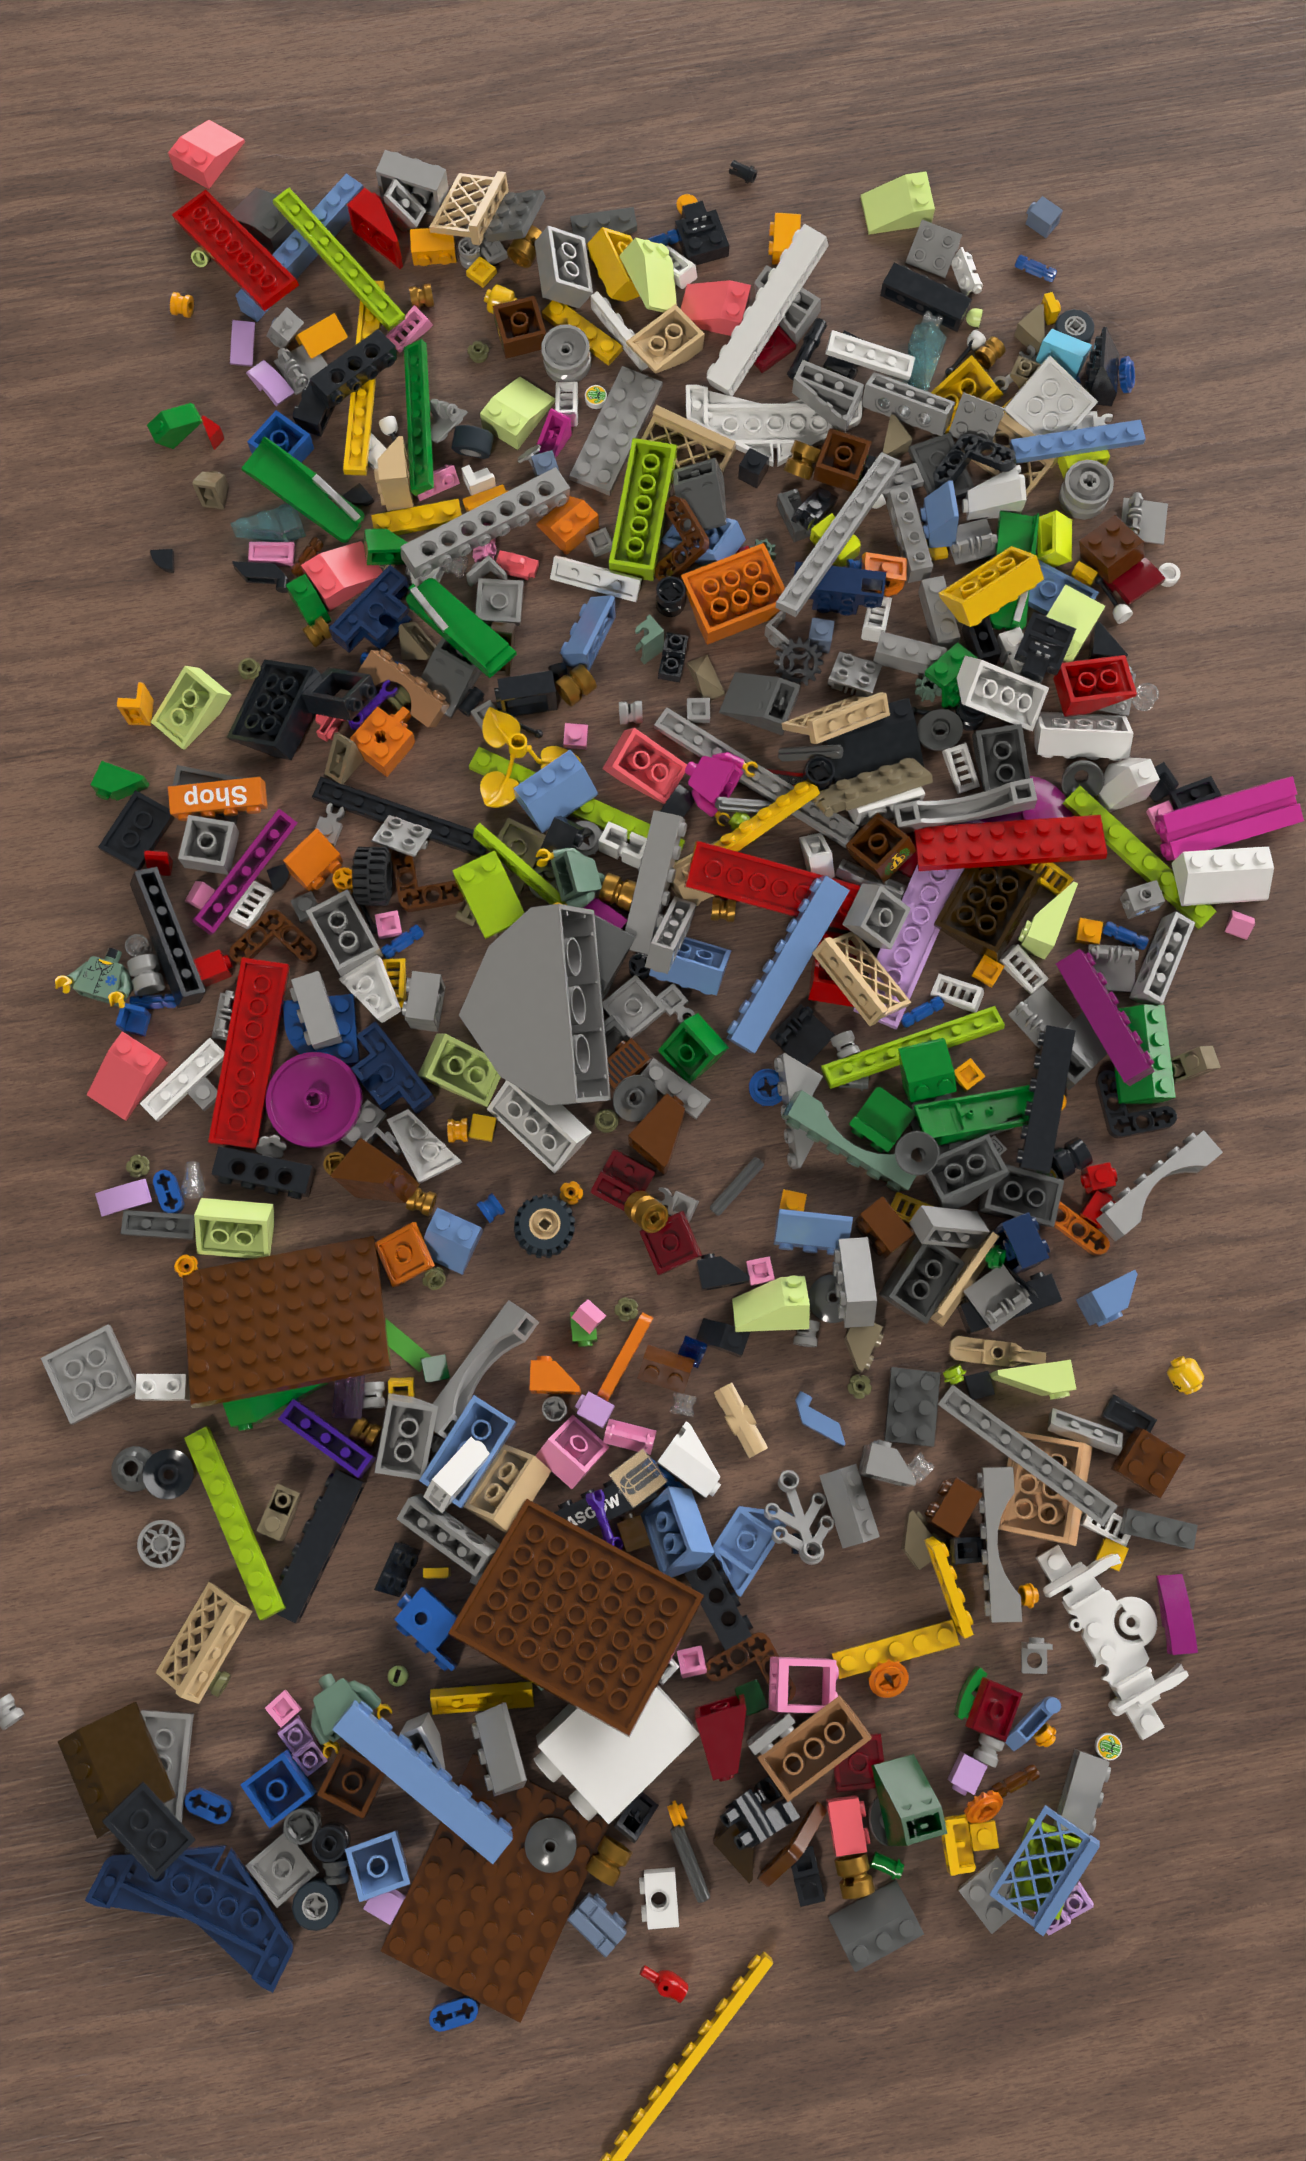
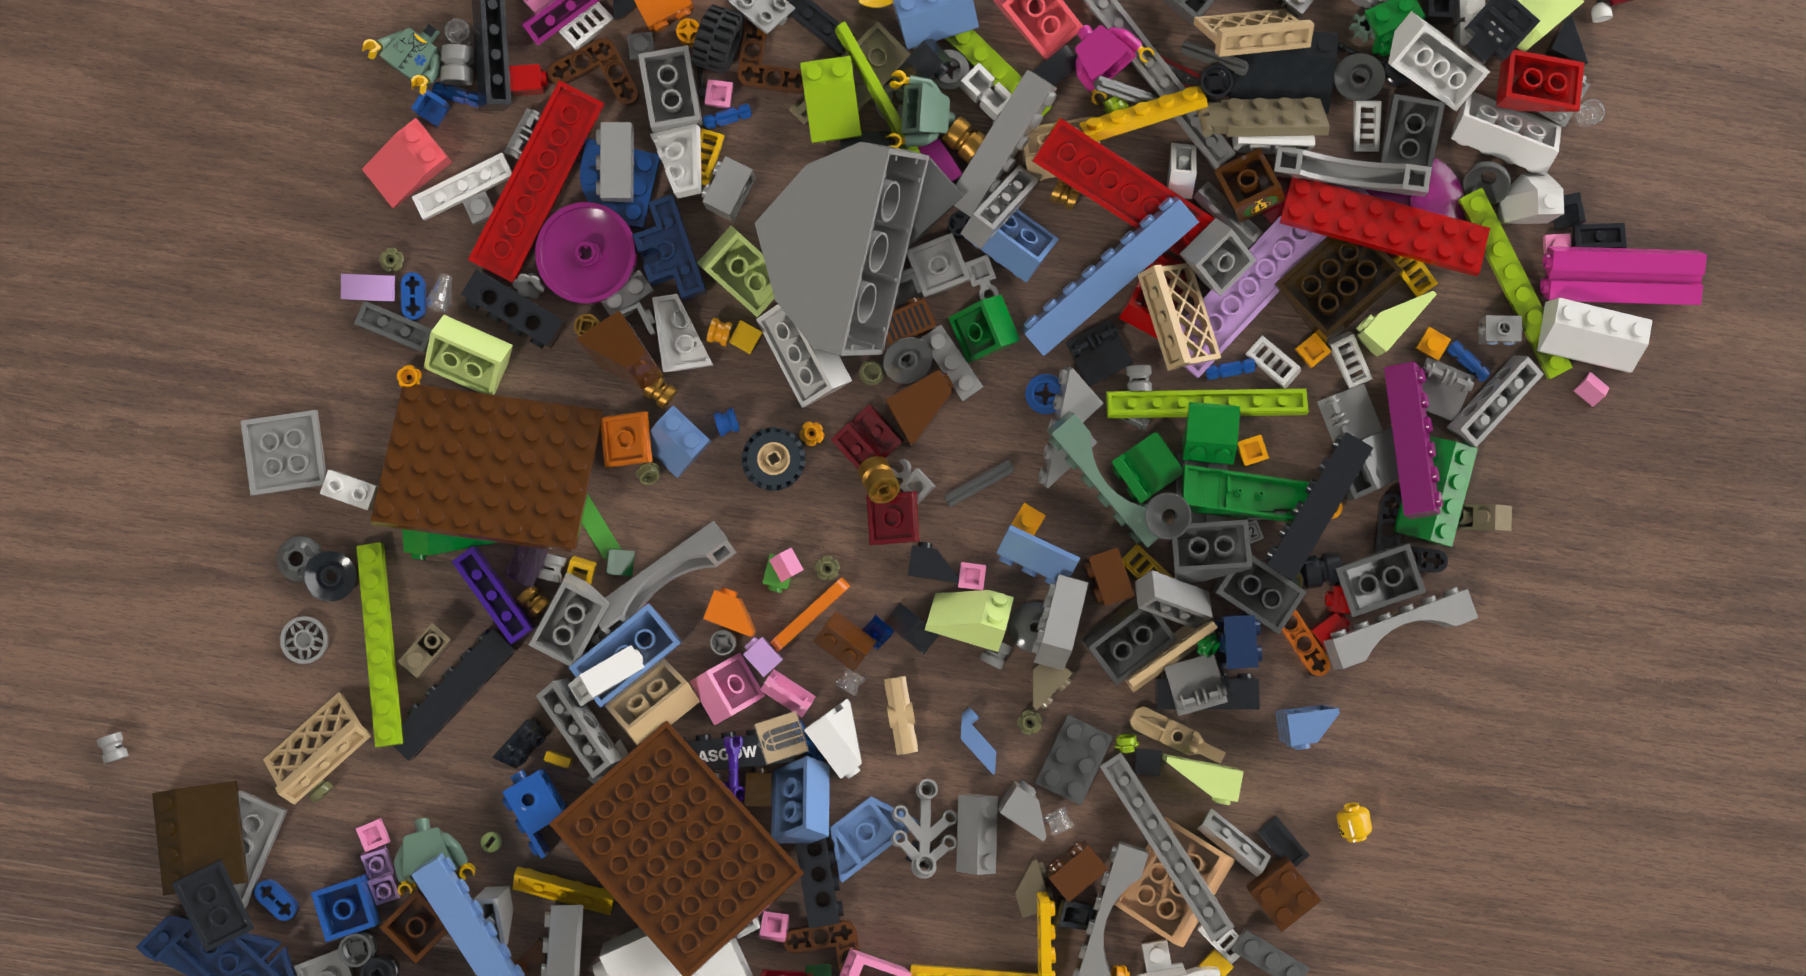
camera: 25 degrees right, 10 degrees up
(1125, 1146) = (1380, 579): none -> dark grey slope

